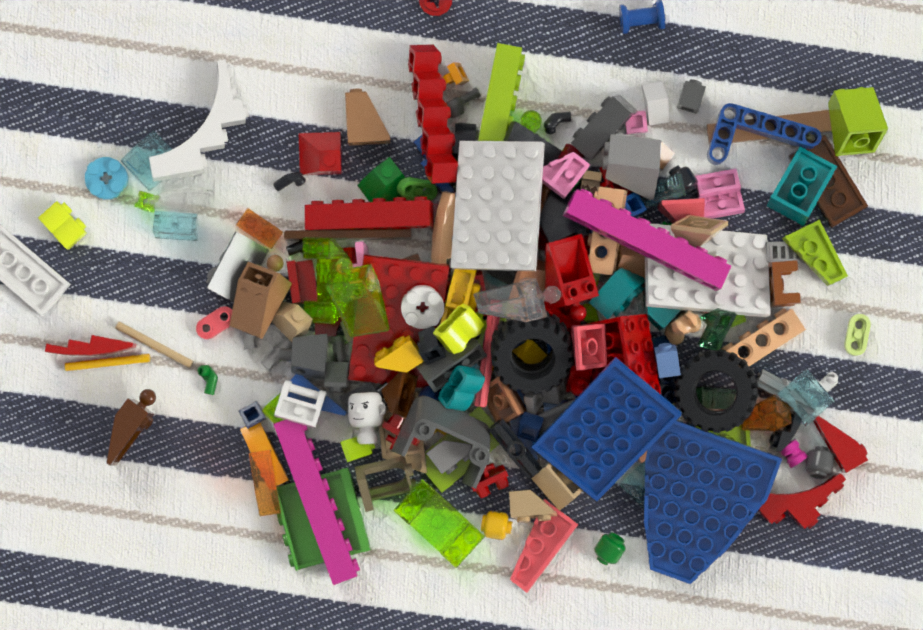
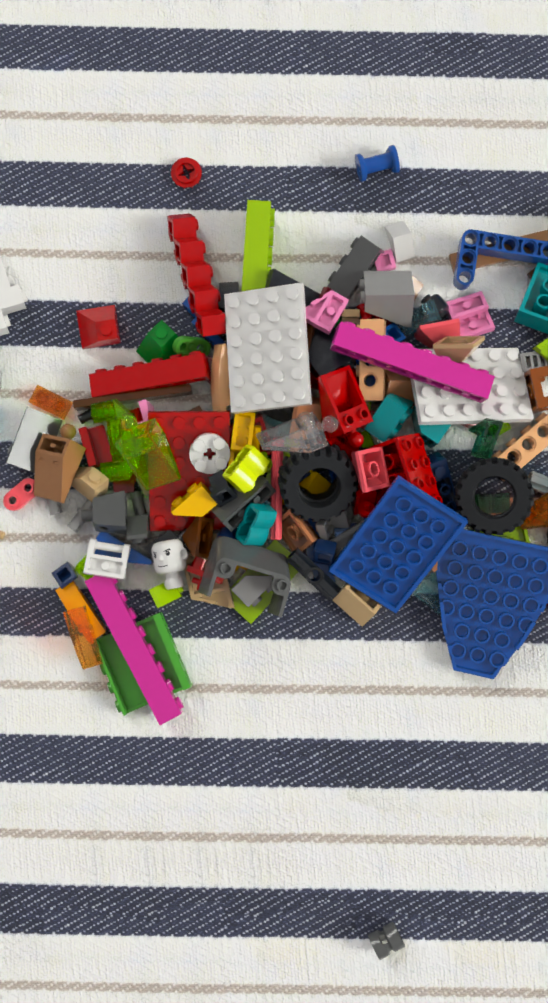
camera: 10 degrees left, 0 degrees up
(210, 378) = (22, 545): green arm -> none
(287, 179) = (71, 353): black arm -> none
(363, 121) = (133, 291): medium nougat slope -> none
(388, 490) = (182, 635): dark tan panel -> none
(439, 523) = (252, 653): clear neon green slope -> none
(456, 74) = (213, 238): light orange tile -> none
(456, 105) = (218, 264): dark grey bar -> none
(490, 475) = (294, 602): red hips -> none
(496, 525) = (305, 647): yellow head -> none
(529, 505) = (332, 625): tan slope -> none
(531, 124) = (286, 265): clear neon green wheel -> none
(541, 547) = (351, 657): coral wing -> none
(554, 119) = (310, 267): black arm -> none
(609, 548) = (413, 655): green head -> none
(667, 360) = (445, 473): medium blue brick -> none
(685, 323) = (454, 438): light nougat piece -> none
(691, 96) = (432, 230): dark grey brick -> none

